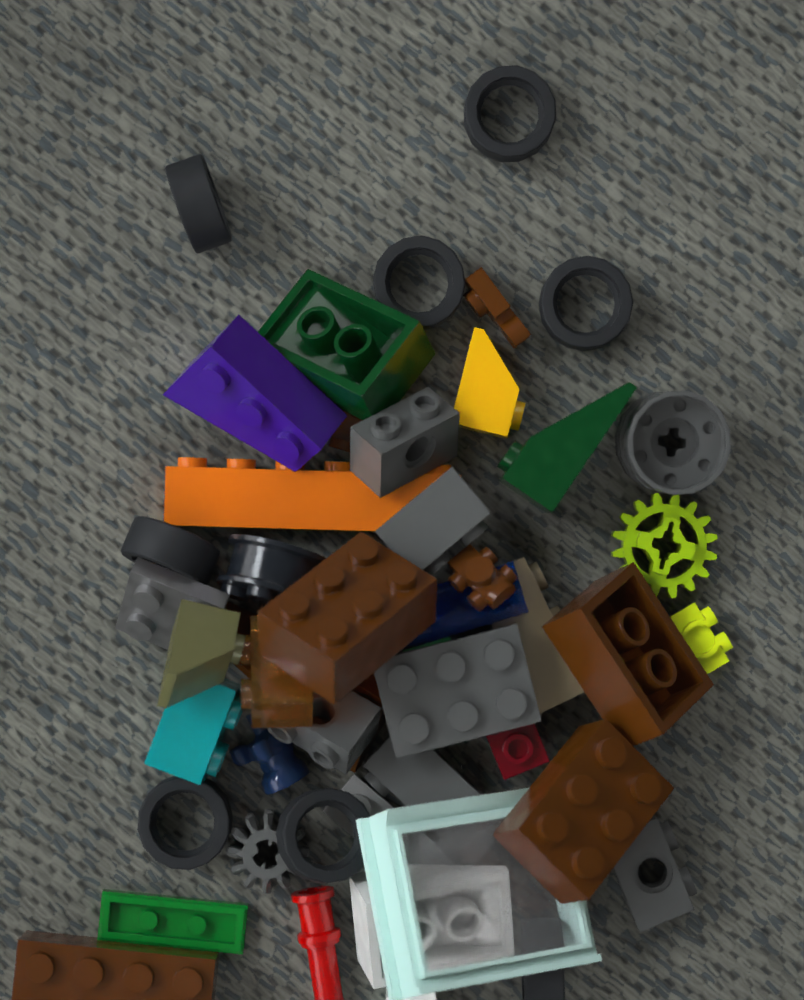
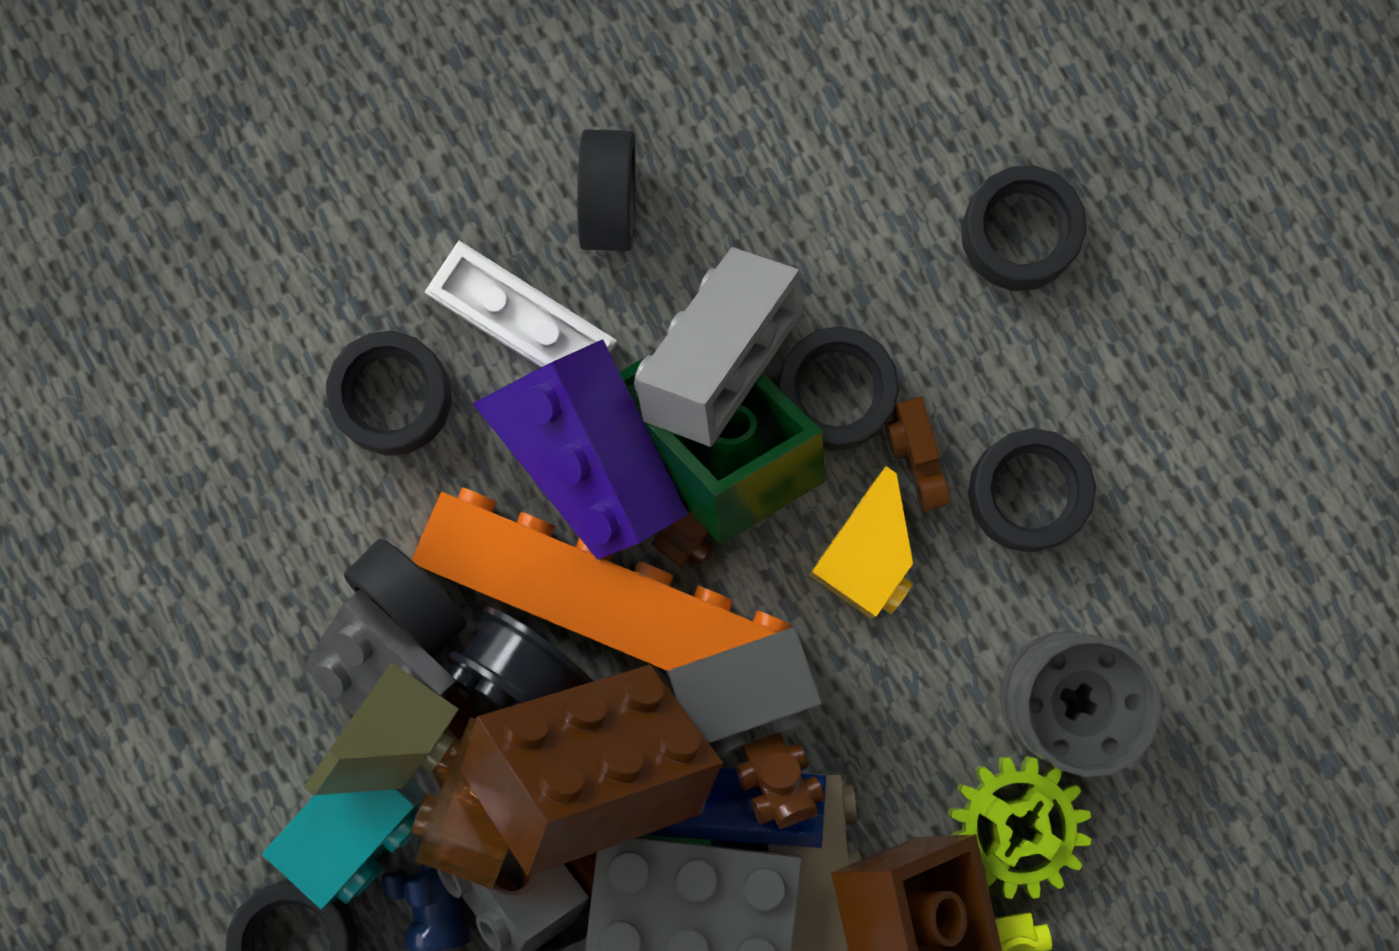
camera: 20 degrees right, 5 degrees down
(62, 412) = (352, 362): none -> black tyre
(162, 315) = (510, 308): none -> white tile
(323, 286) = (719, 346): none -> light grey brick
(404, 441) = (746, 573): dark grey brick -> none
(554, 457) = (924, 665): dark green slope -> none

